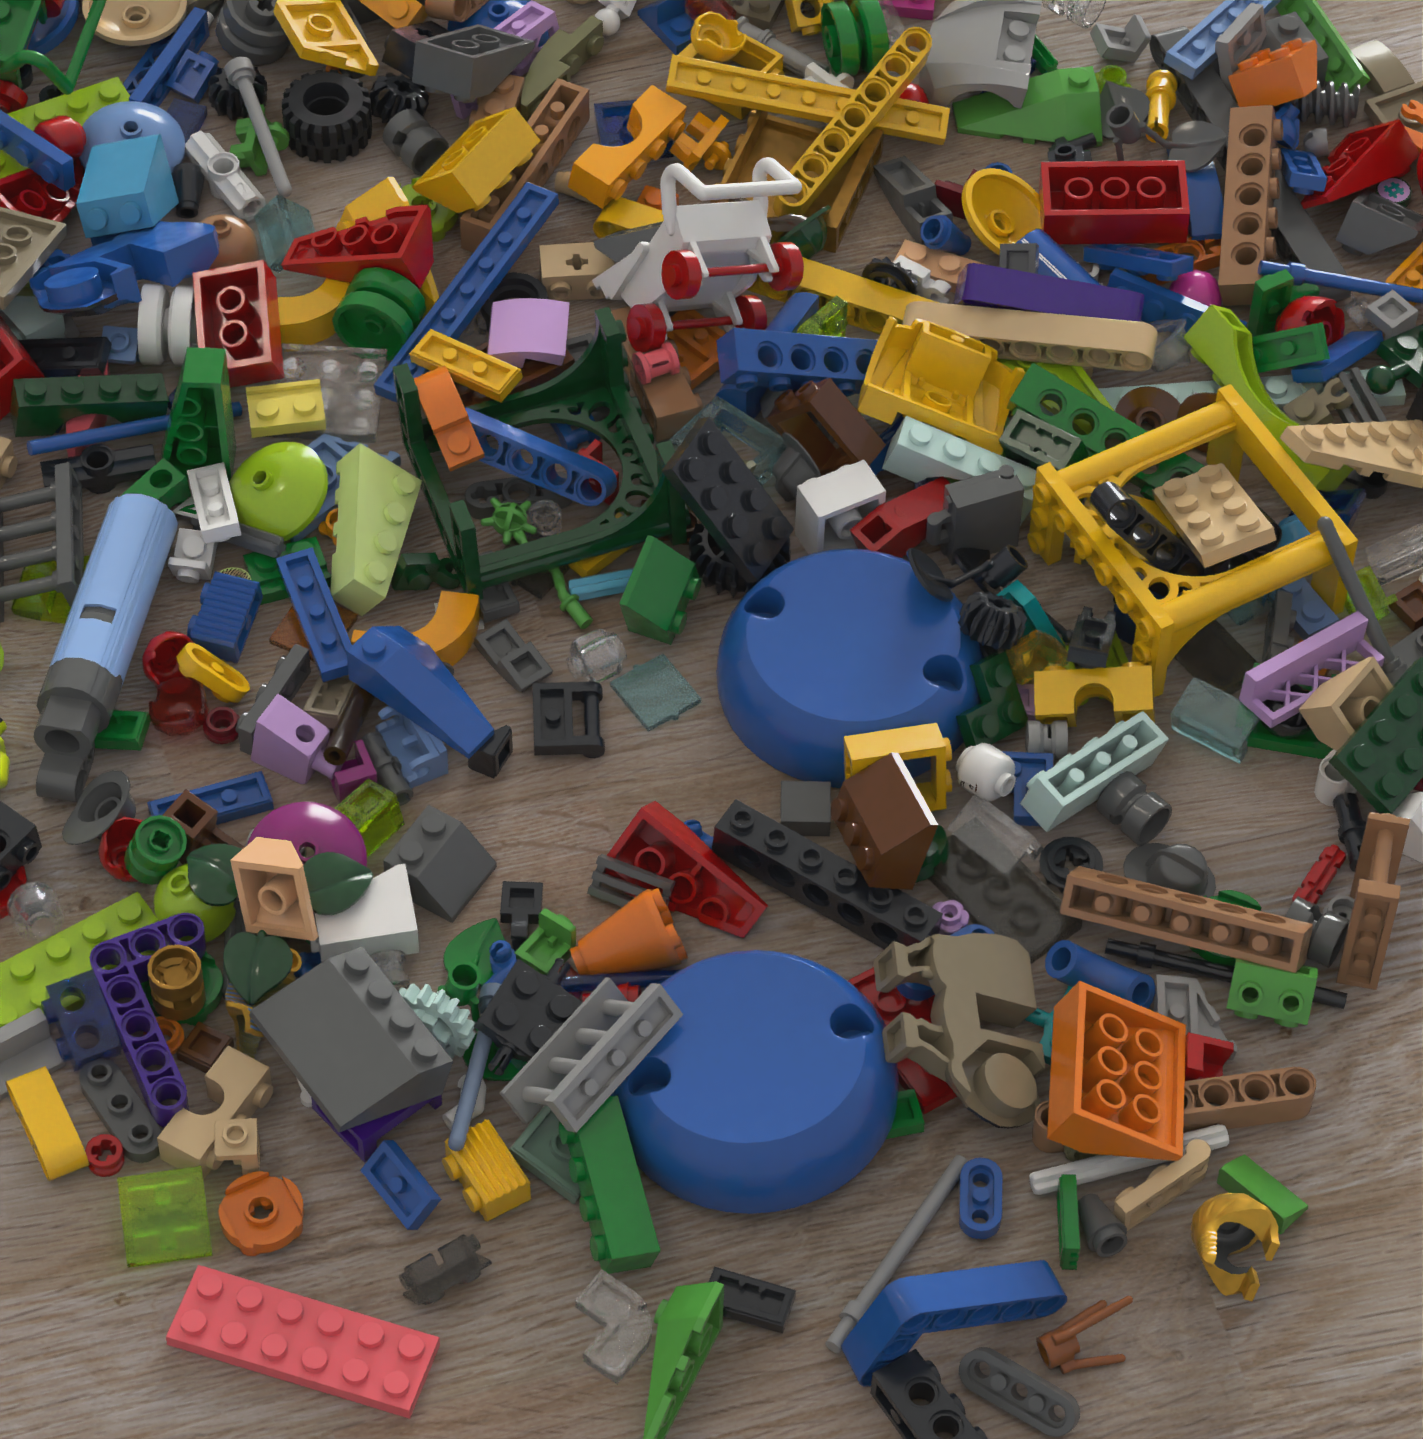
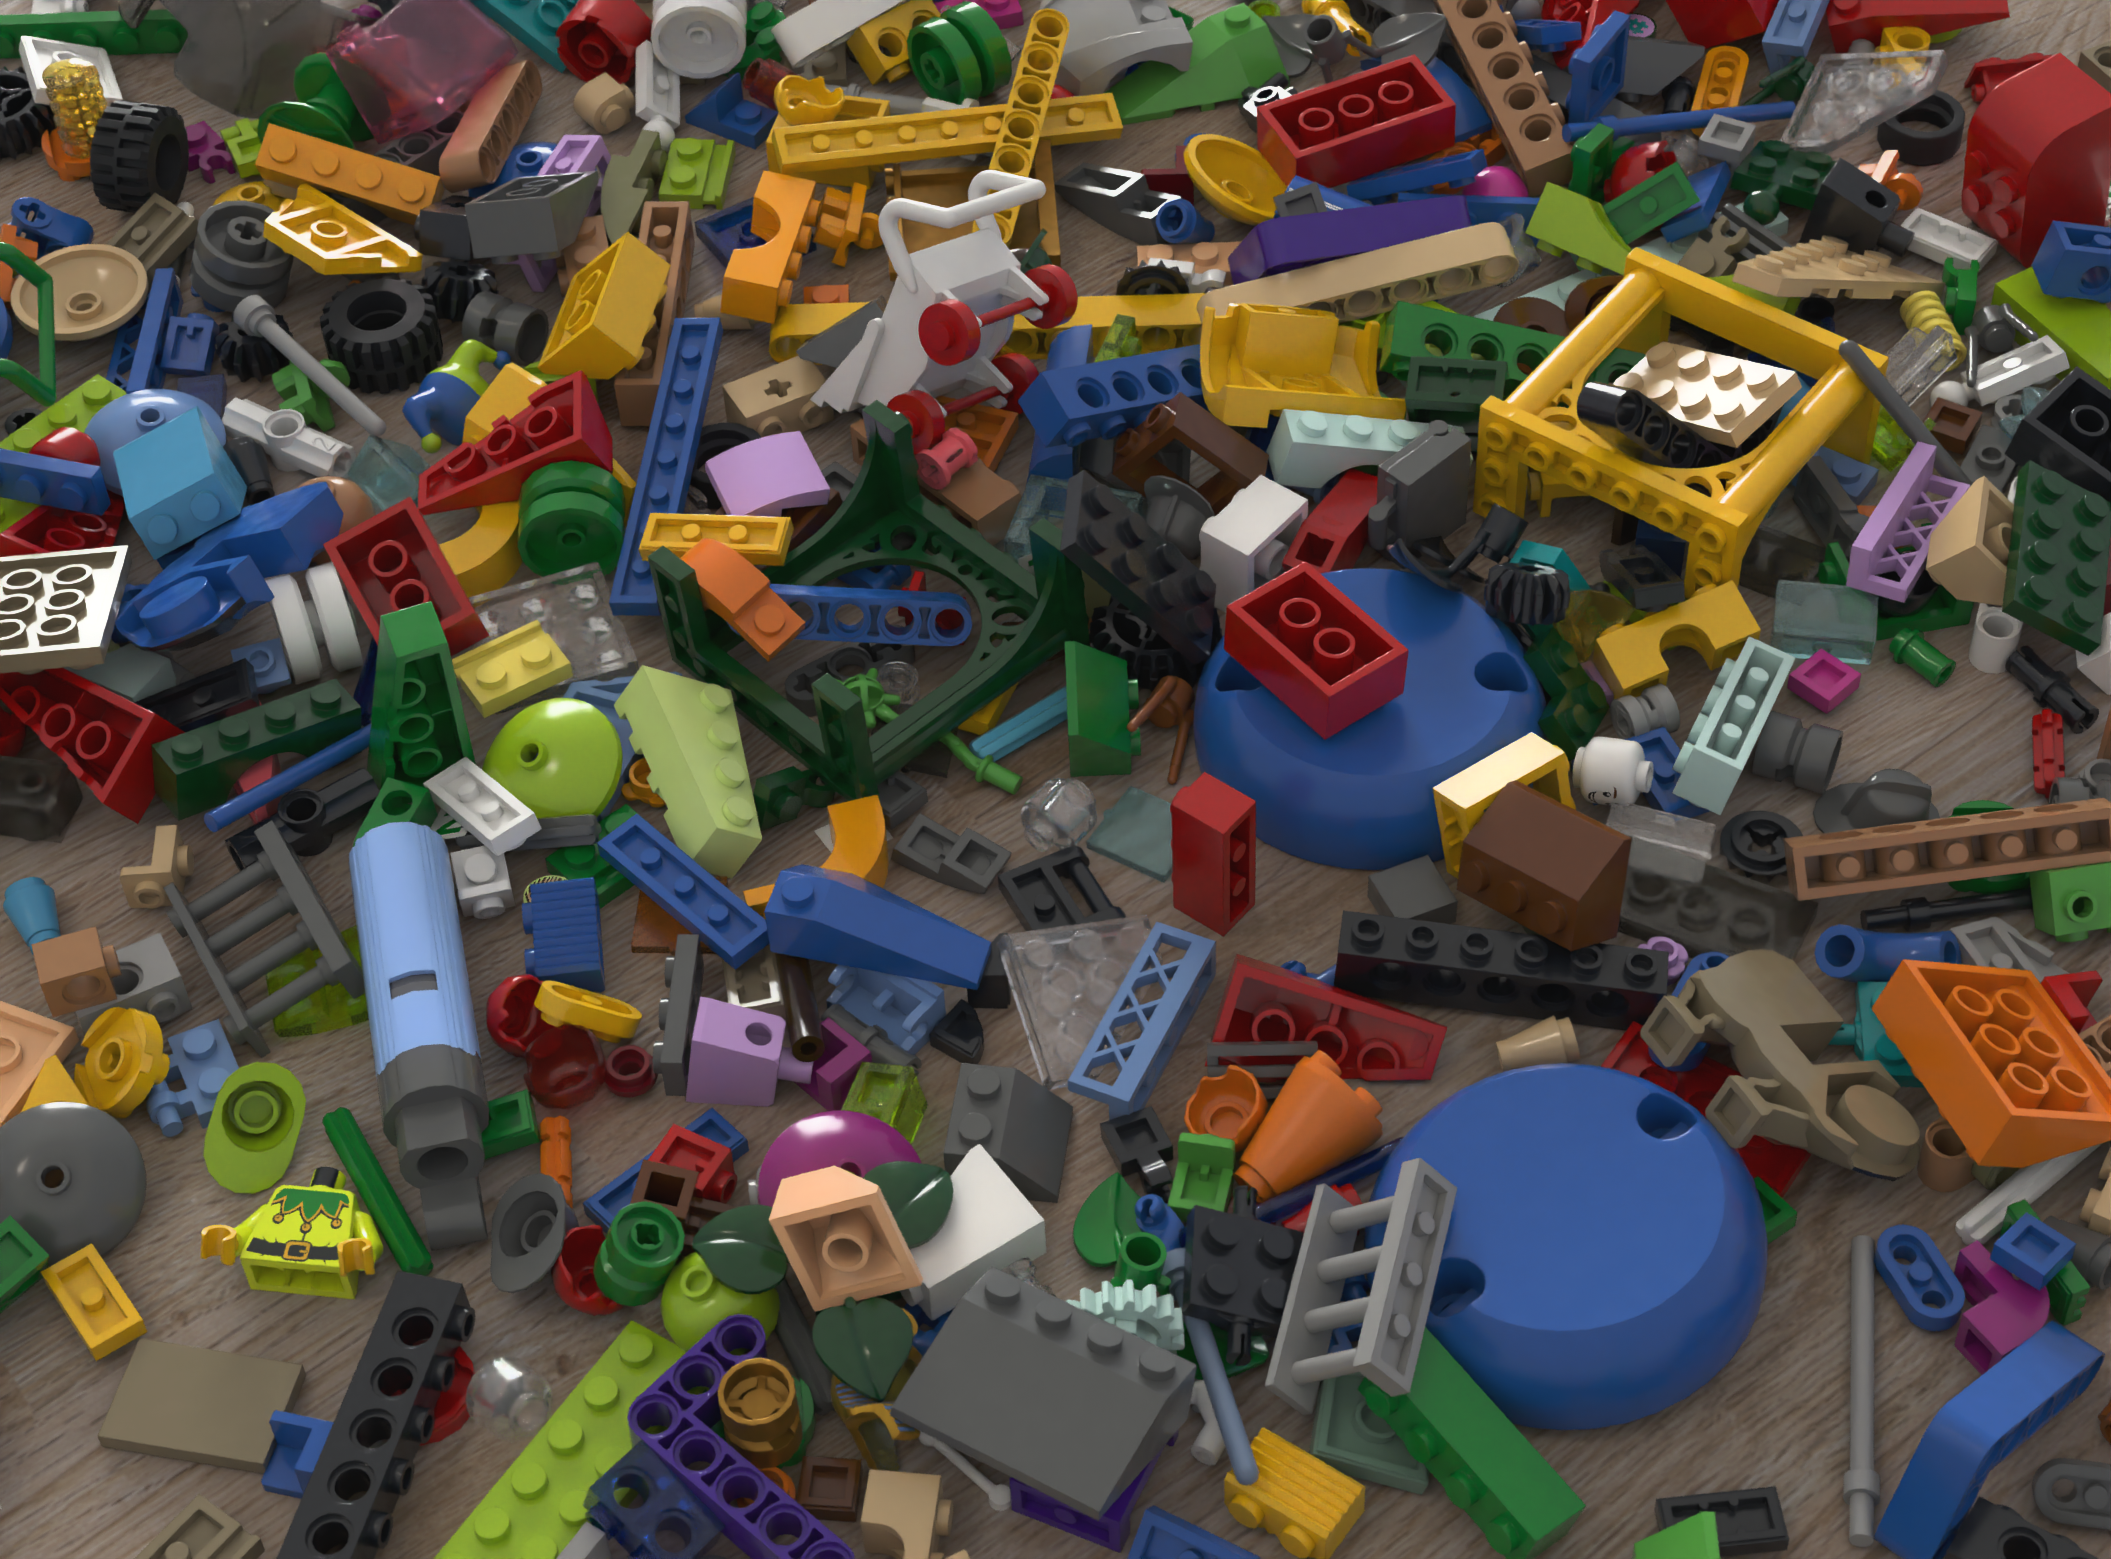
camera: 20 degrees left, 5 degrees down
(23, 744) = (377, 1192): none -> green axle
(146, 767) = (556, 1153): none -> orange axle
(233, 807) = (699, 1154): none -> red bracket
(350, 180) = (450, 394): none -> blue piece
(450, 785) = (960, 1034): none -> black tile
(540, 785) = (1066, 984): none -> clear plate
(582, 833) = (1160, 1034): none -> medium blue fence
(589, 903) = (1227, 1107): none -> orange hair
(620, 62) = (697, 172): none -> lime plate
(673, 725) = (1213, 853): none -> red brick
(716, 606) = (1167, 707): none -> dark orange plant
(812, 606) = (1315, 649): none -> red brick
(827, 944) = (1543, 1043): none -> tan cone
(1025, 1238) = (2002, 1310): none -> magenta brick
(1050, 1209) = (2032, 1251): none -> blue plate
(1192, 763) = (1824, 681): none -> dark pink plate
(1273, 766) = (1921, 656): none -> green pin
(1314, 224) = (1598, 69): none -> blue plate
(1386, 264) = (1678, 95): none -> black pin

